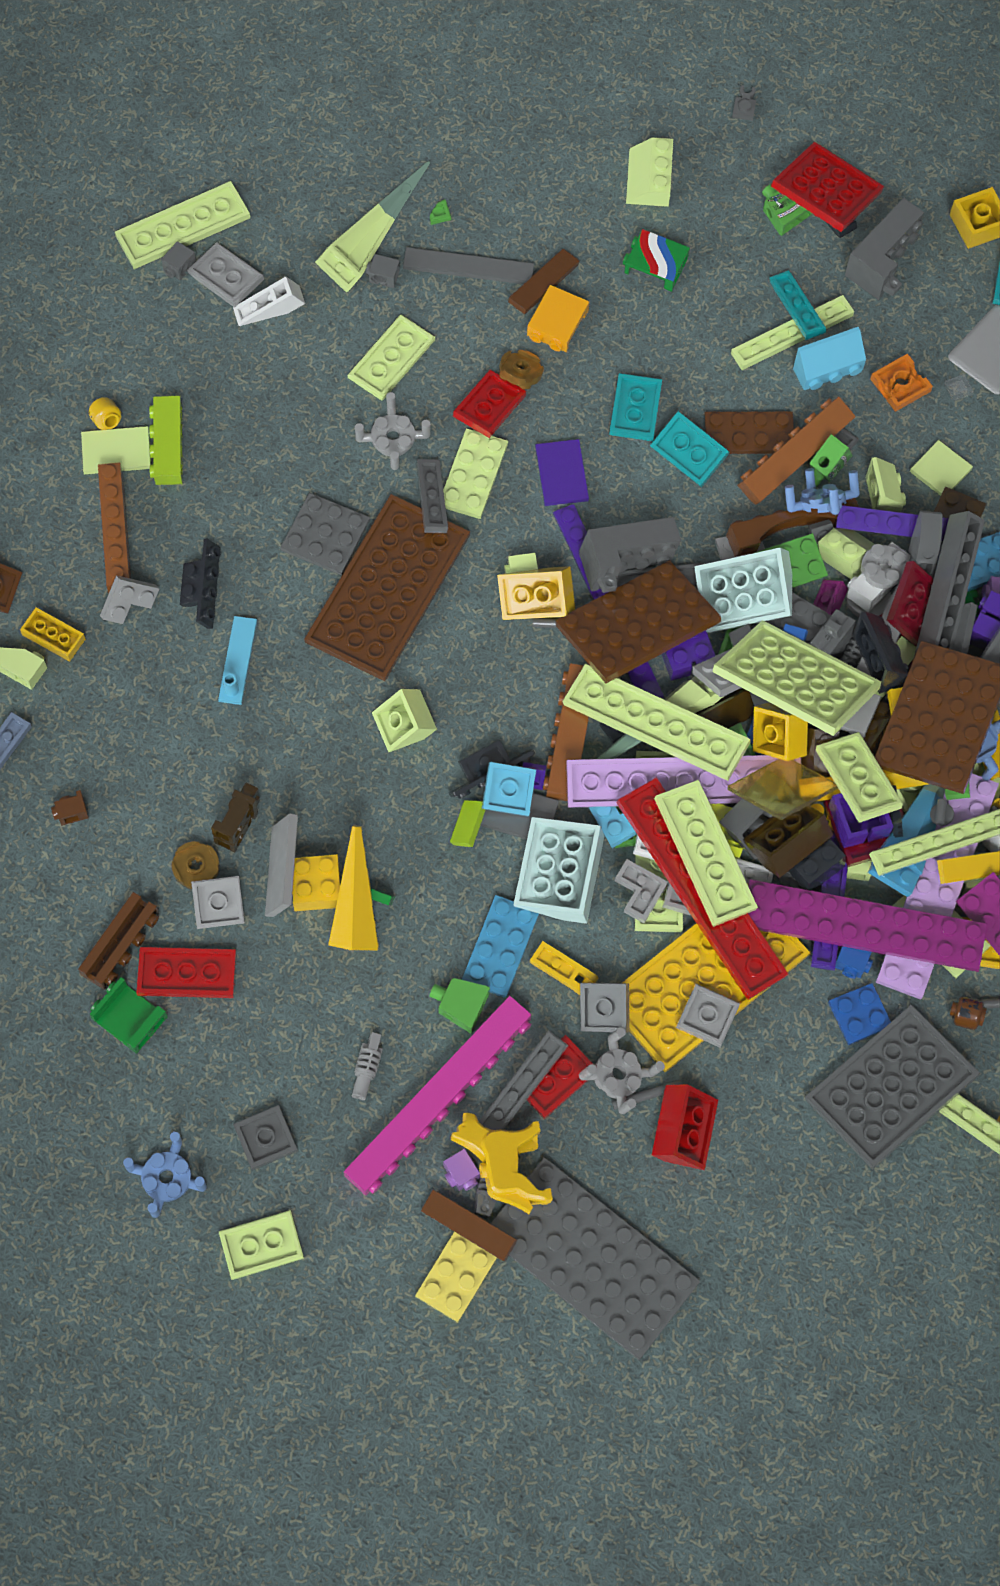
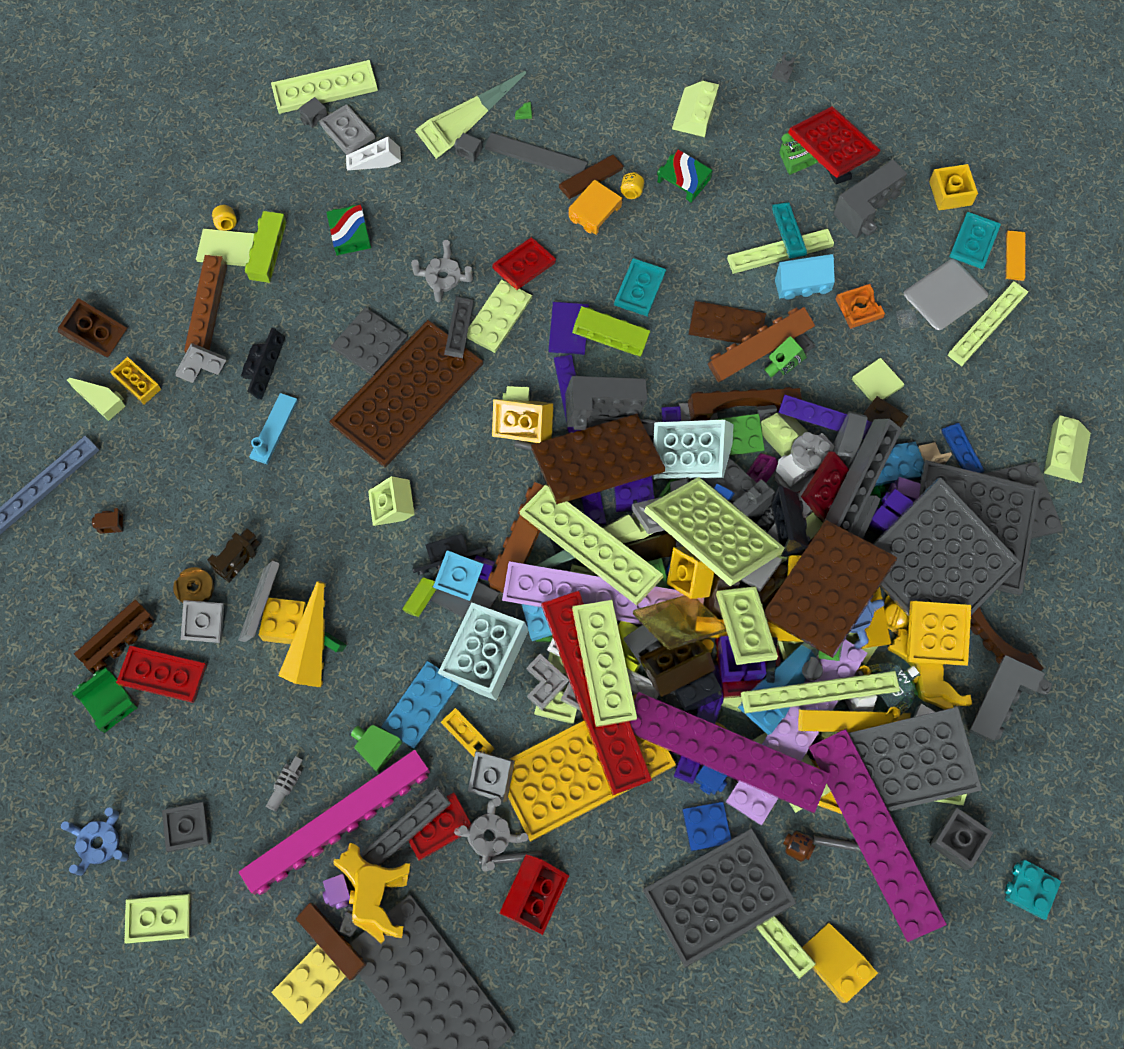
camera: 15 degrees right, 0 degrees up
(264, 400) = (348, 229): none -> panel
(391, 357) = (457, 214): yellowish green tile -> none
(524, 378) = (556, 248): pearl gold plate -> none
(596, 283) = (632, 185): none -> yellow head
(615, 467) = (611, 331): none -> lime brick
(689, 449) = (675, 328): teal plate -> none
(708, 1015) = (576, 801): light grey tile -> none
(709, 553) = (671, 414): none -> dark purple plate
(825, 499) = (772, 388): medium blue plate -> none
(884, 486) = (827, 386): yellowish green slope -> none

